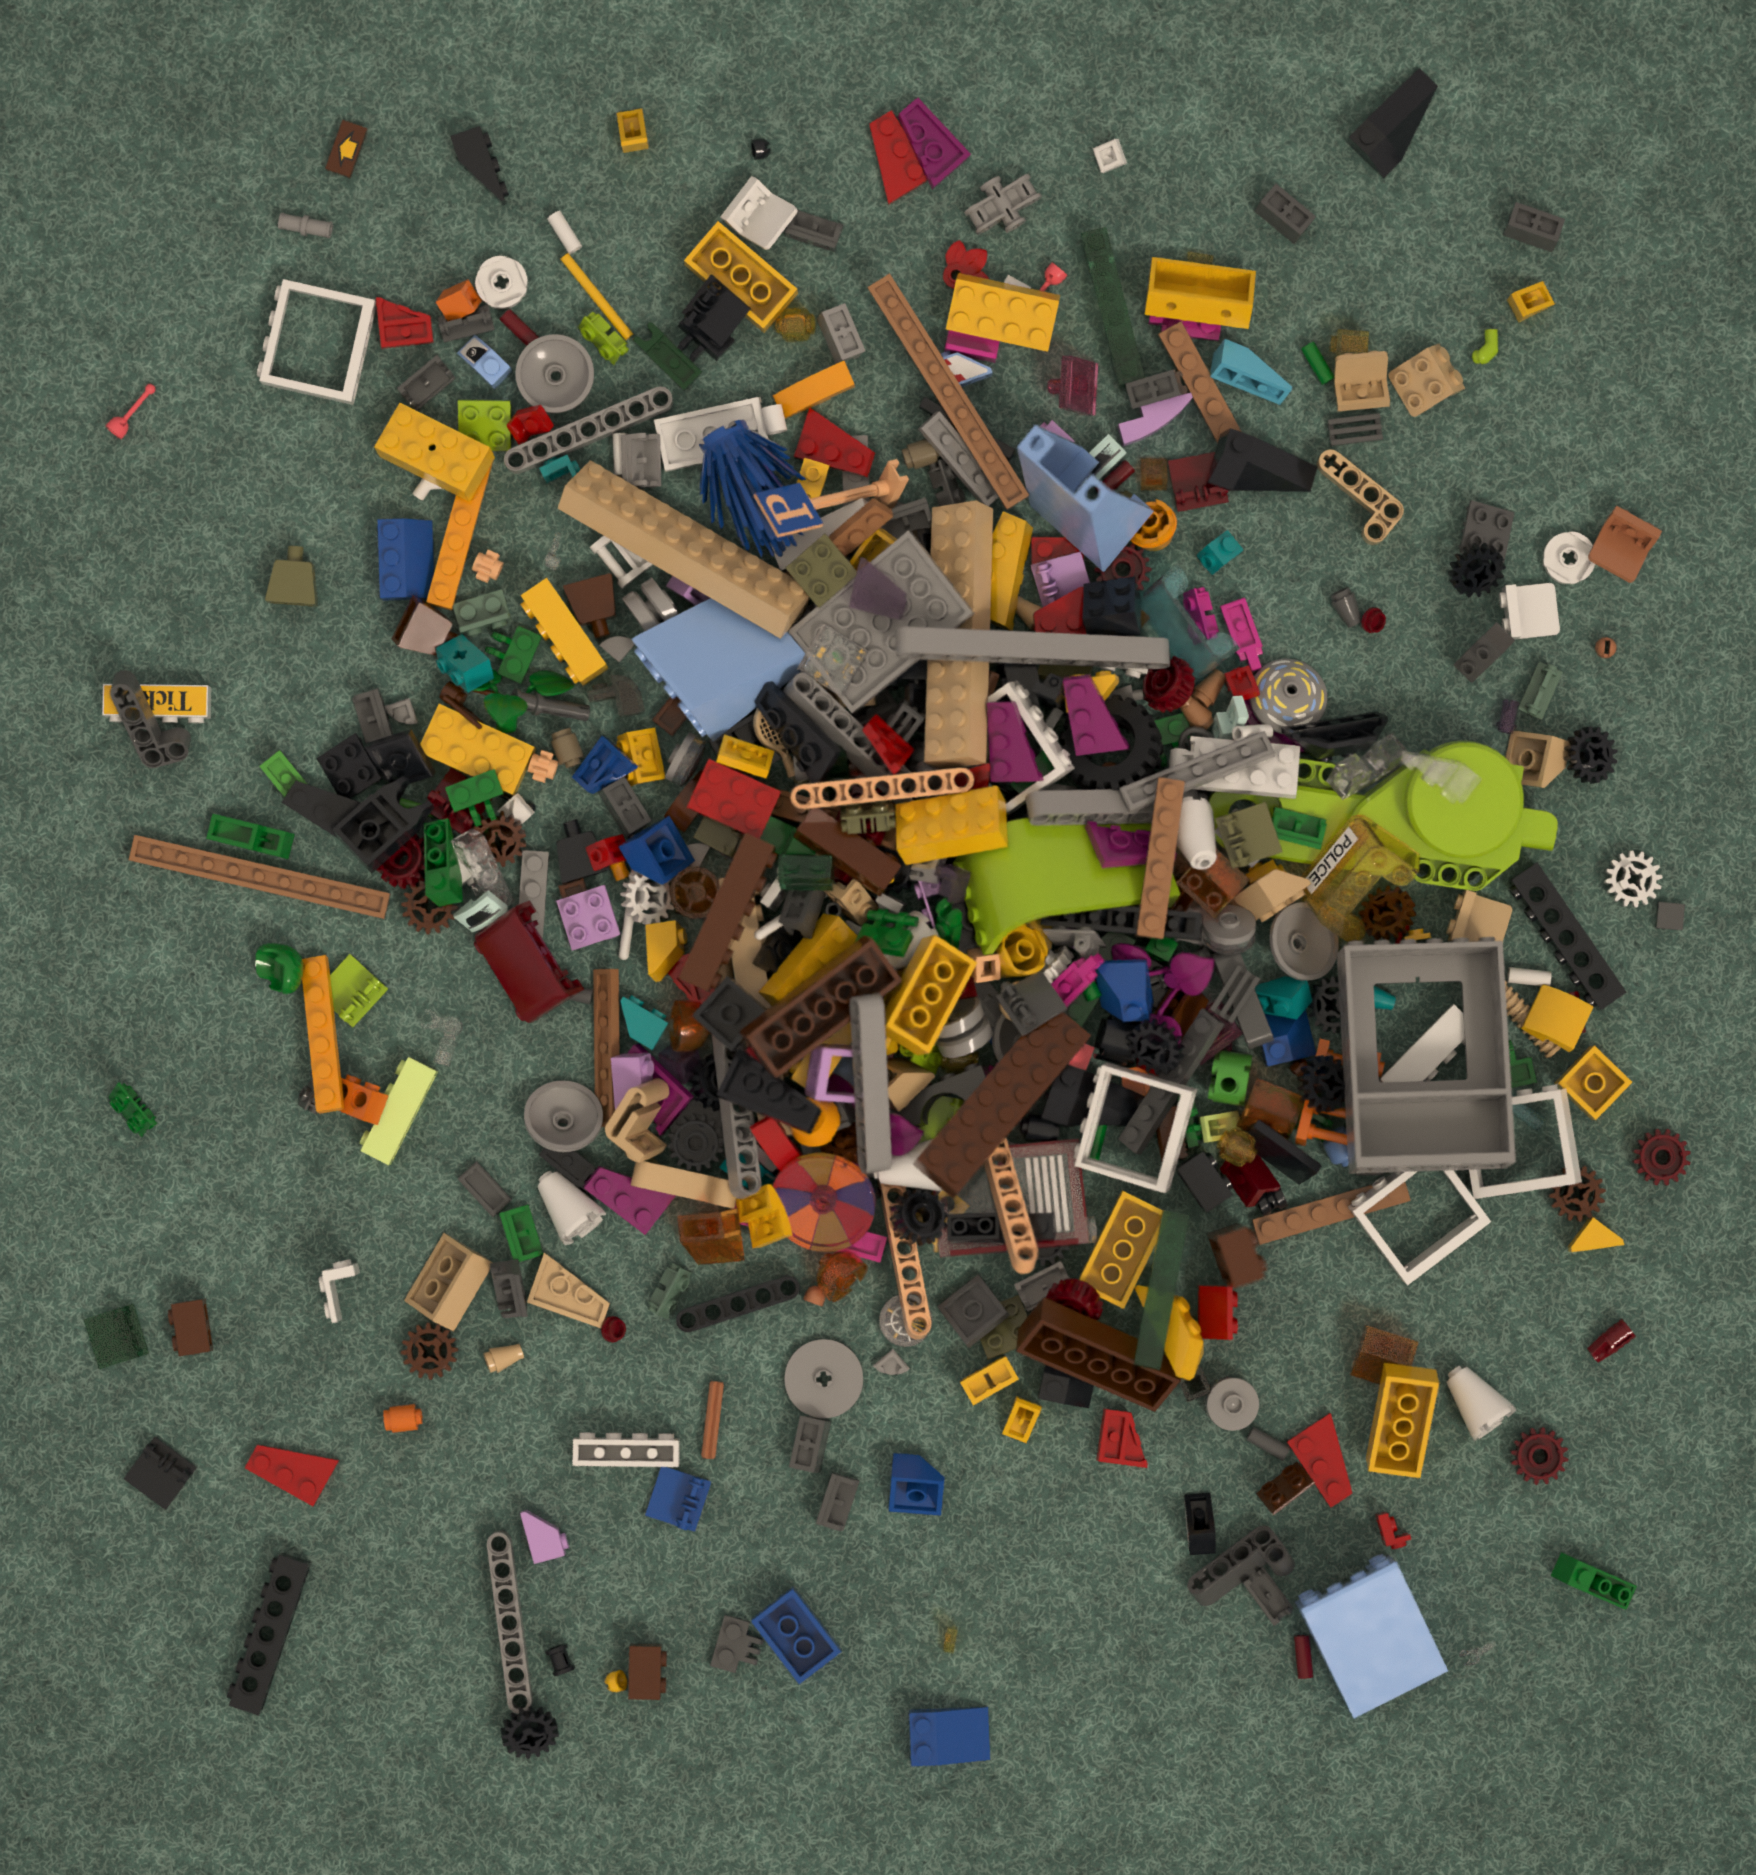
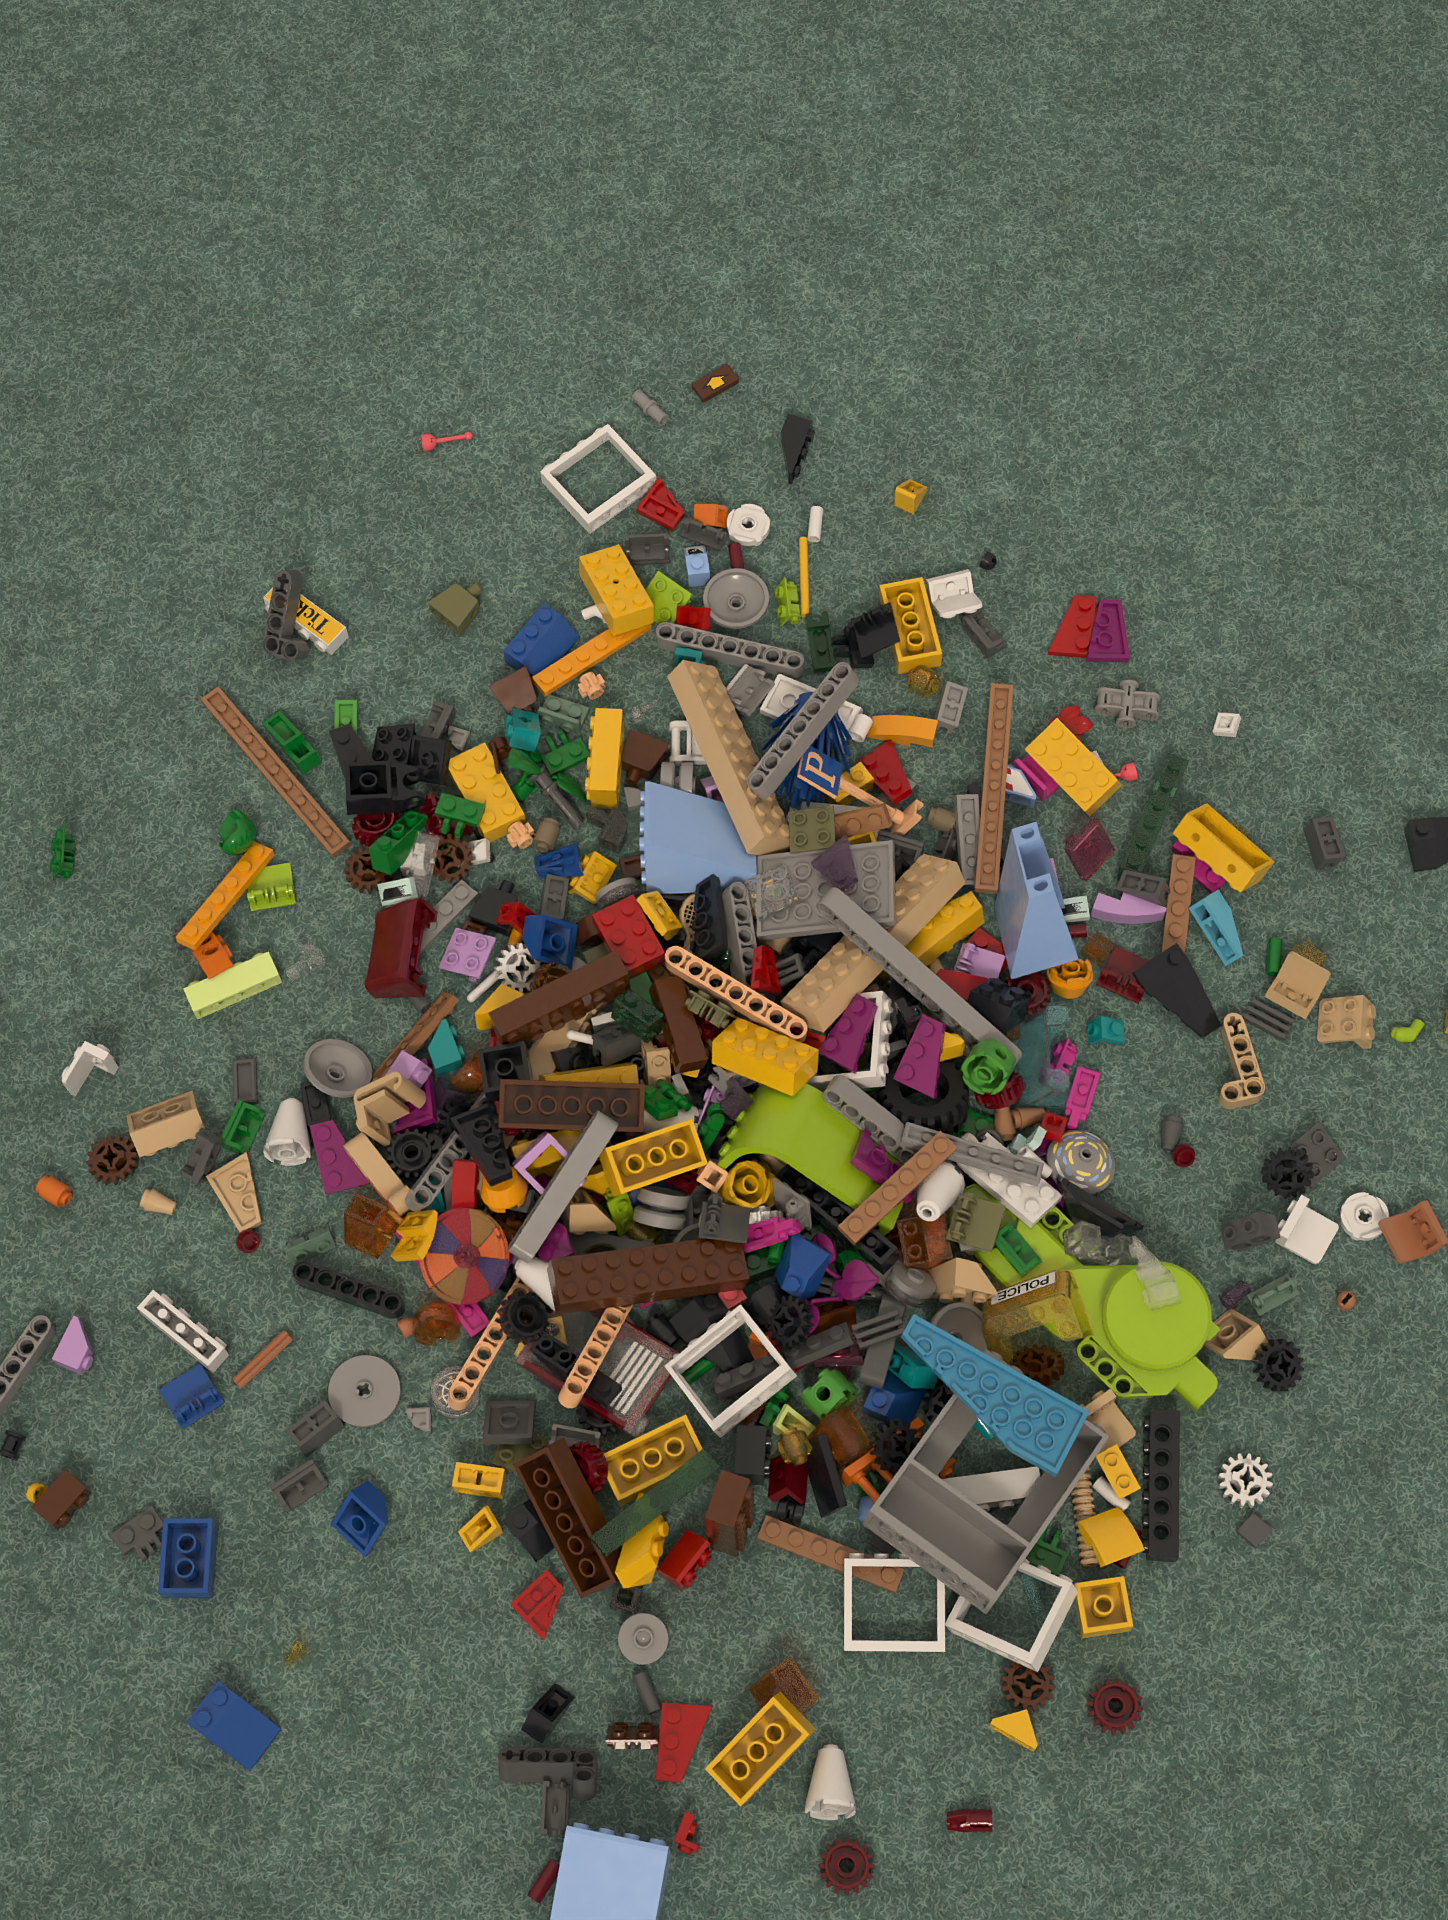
camera: 40 degrees right, 20 degrees down
(740, 498) = (802, 730): none -> light grey beam
(1152, 680) = (988, 1067): none -> bright green brick
(1410, 982) = (1012, 1406): none -> dark azure wing
(1524, 955) = (1117, 1471): none -> yellow bracket

